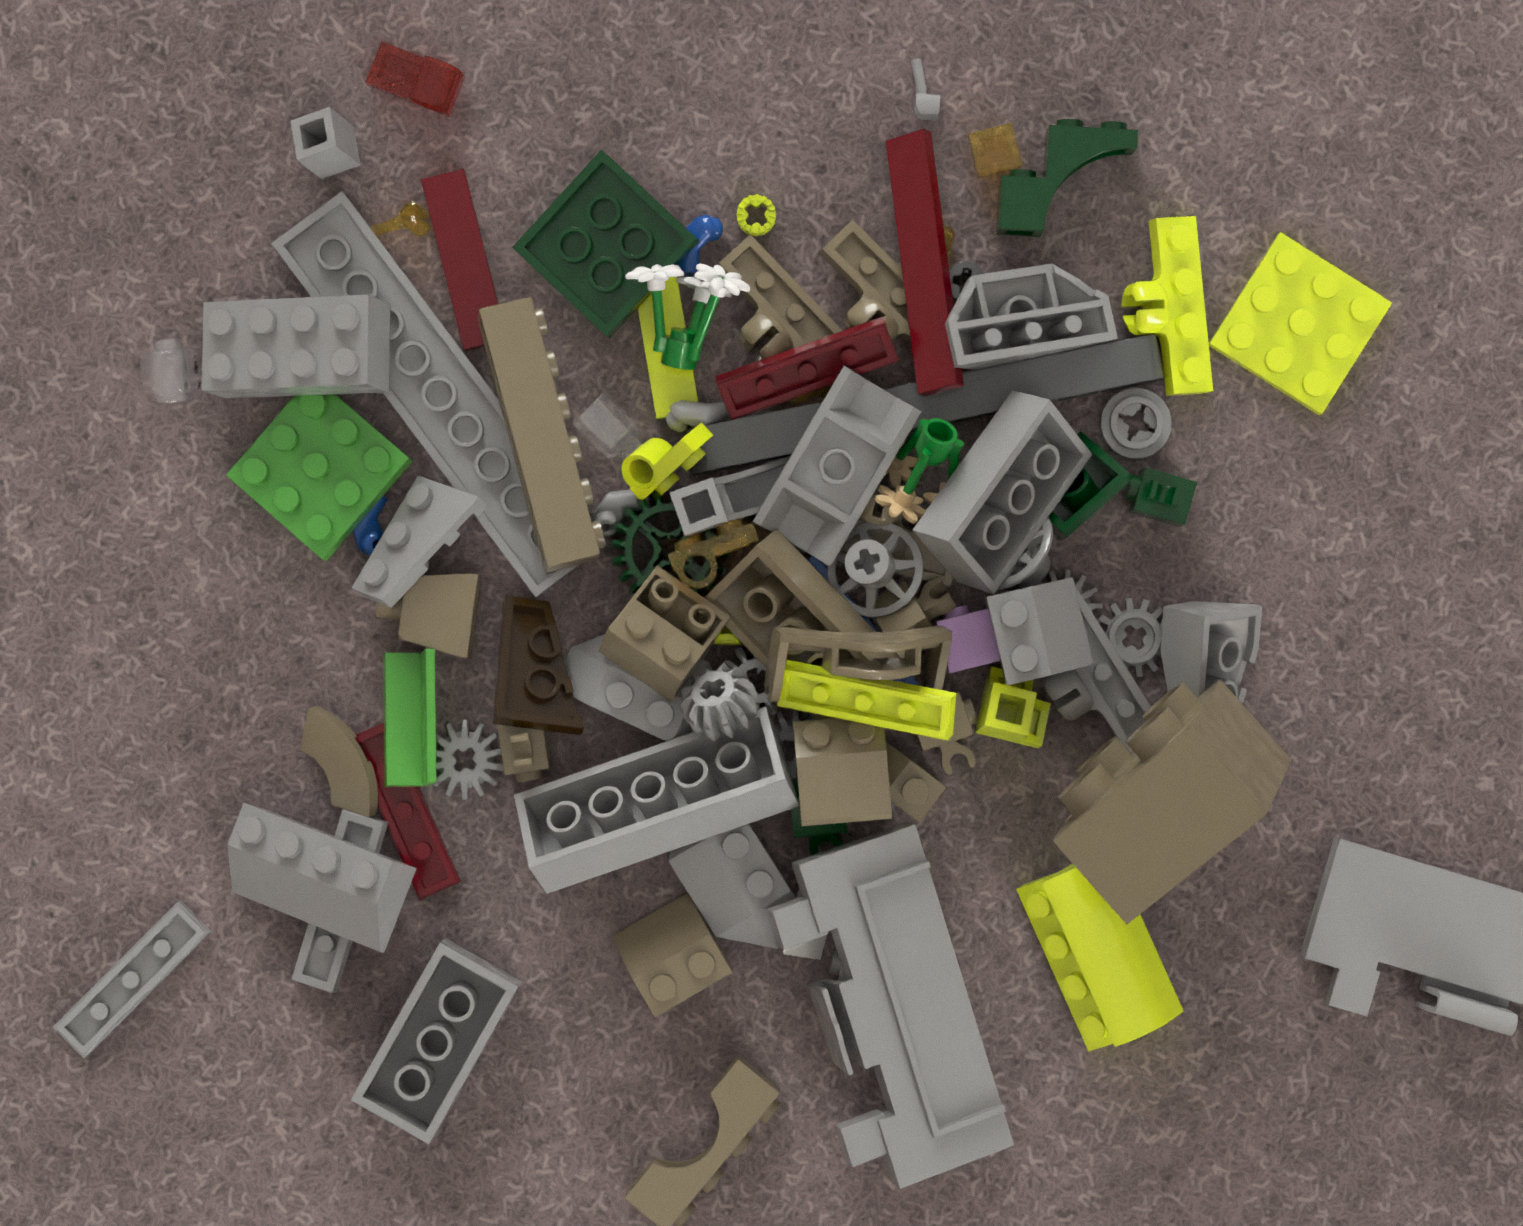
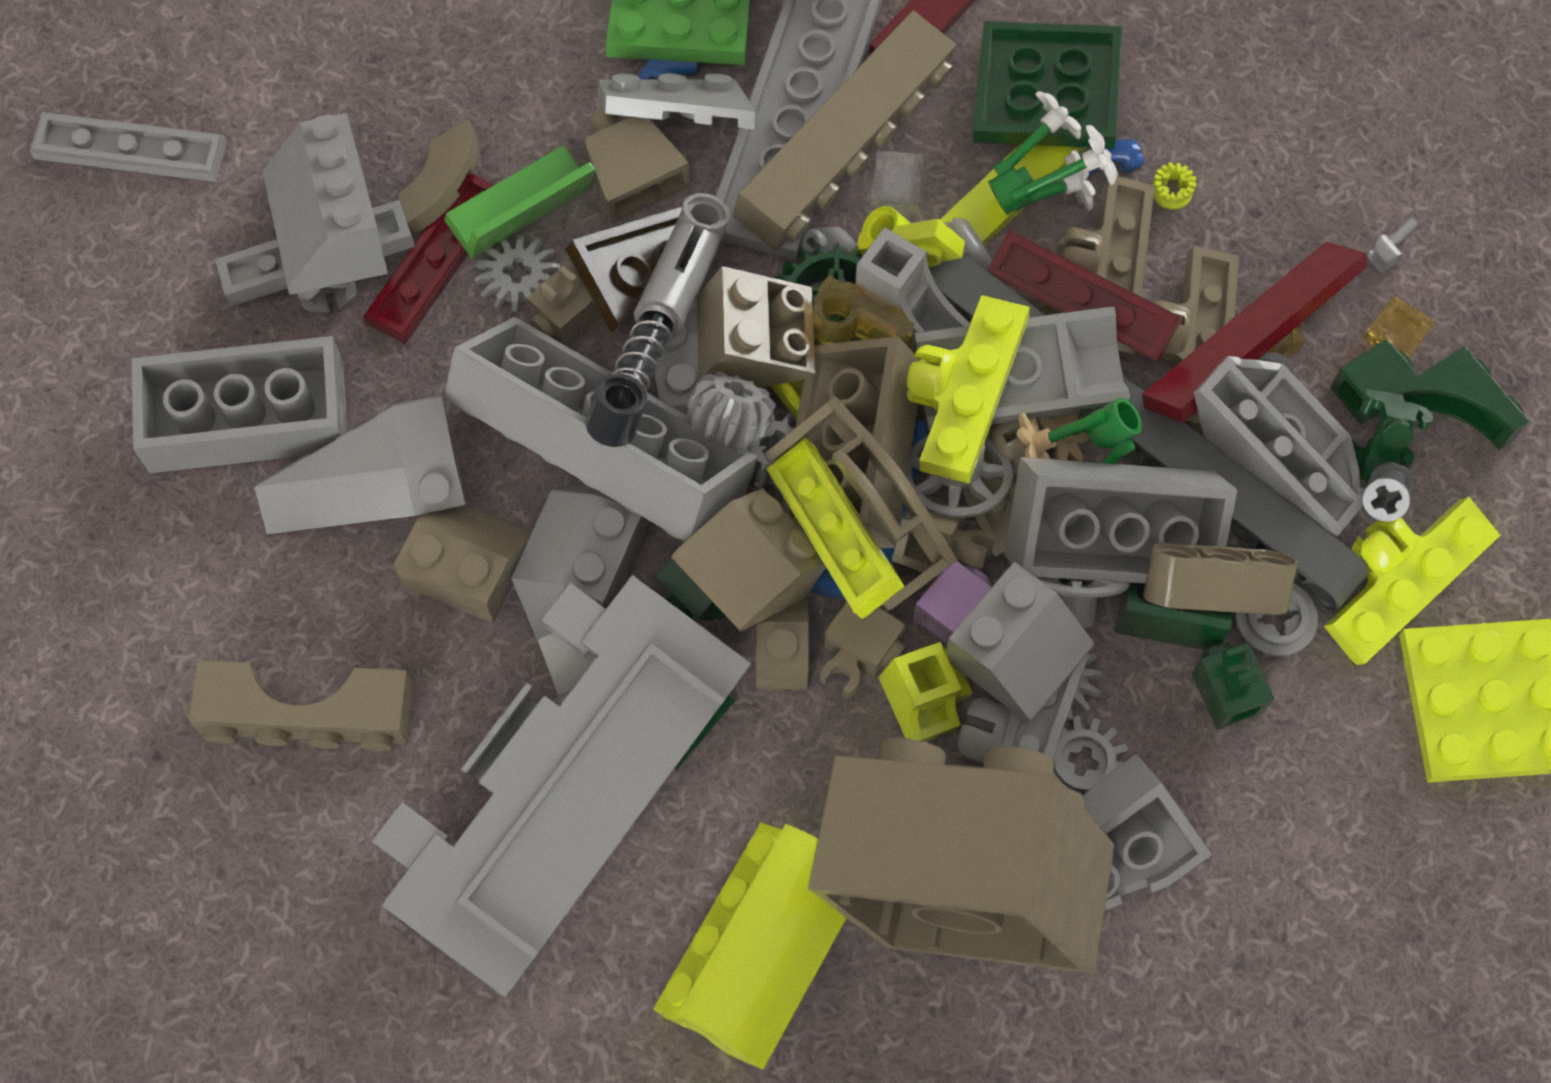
camera: 50 degrees right, 20 degrees down
(569, 974) = (379, 471): none -> light grey wedge
(608, 697) = (659, 317): none -> piece
(829, 522) = (966, 386): none -> neon yellow plate
(1076, 238) = (1392, 432): none -> dark green piece
(1094, 455) = (1220, 578): none -> dark tan beam
(1119, 283) = (1382, 504): none -> dark grey bush

